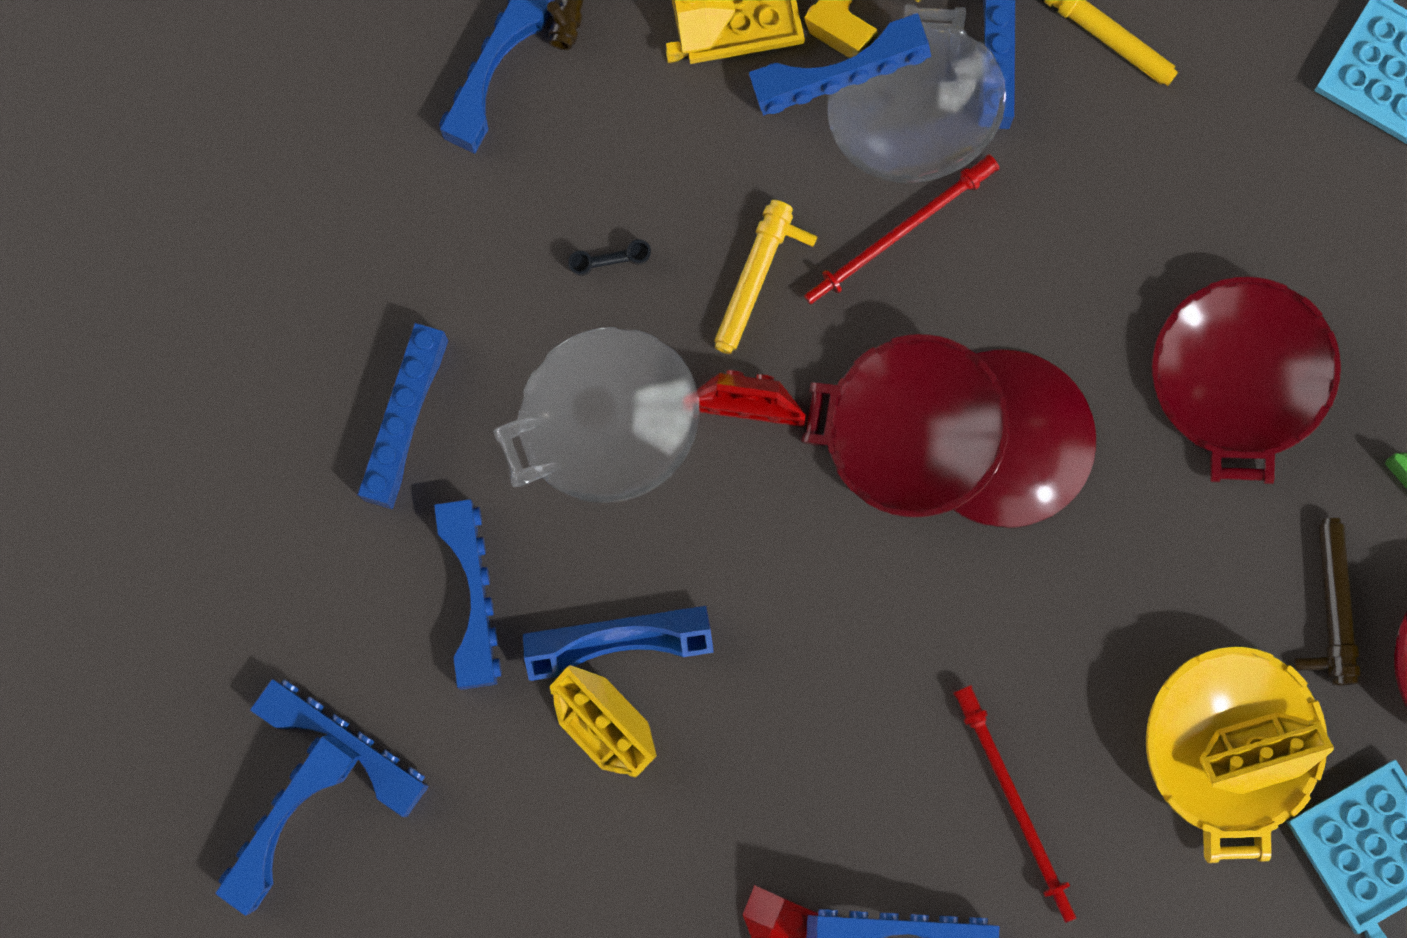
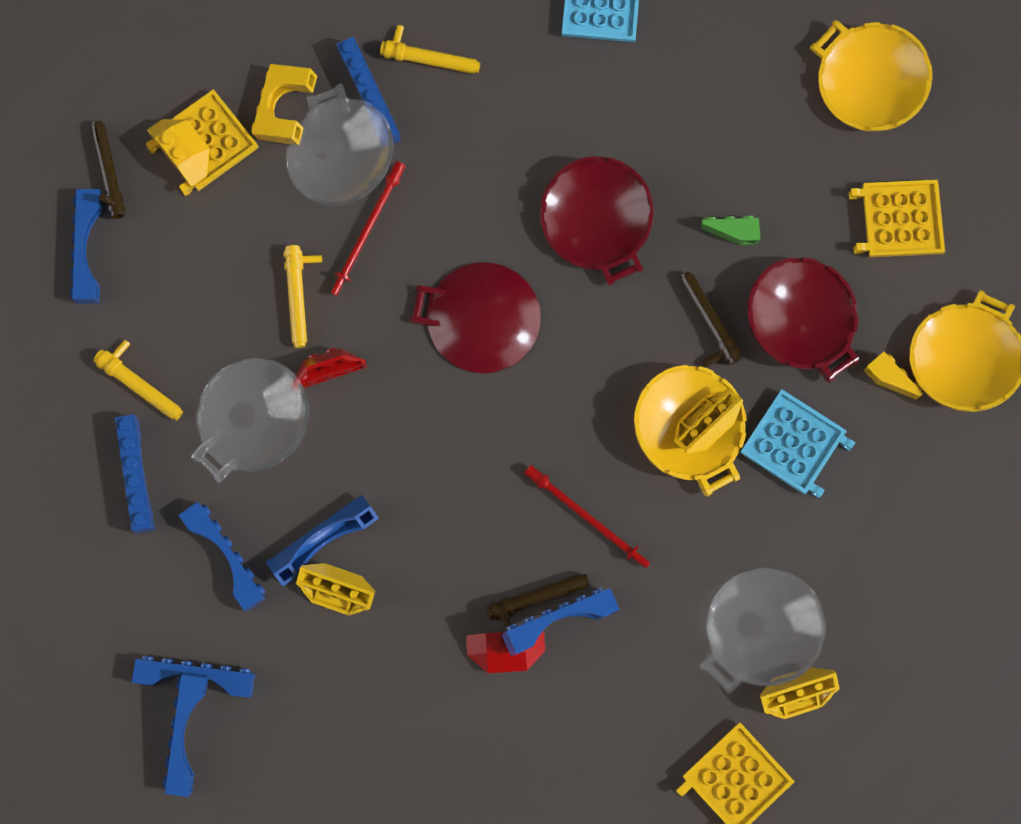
camera: 30 degrees left, 0 degrees up
(451, 253) = (114, 367): none -> yellow cylinder
(582, 263) = (193, 336): black bar -> none
(836, 875) = (508, 606): none -> dark brown cylinder
(898, 46) = (313, 125): blue arch -> none
(914, 425) = (427, 336): dark red dish -> none

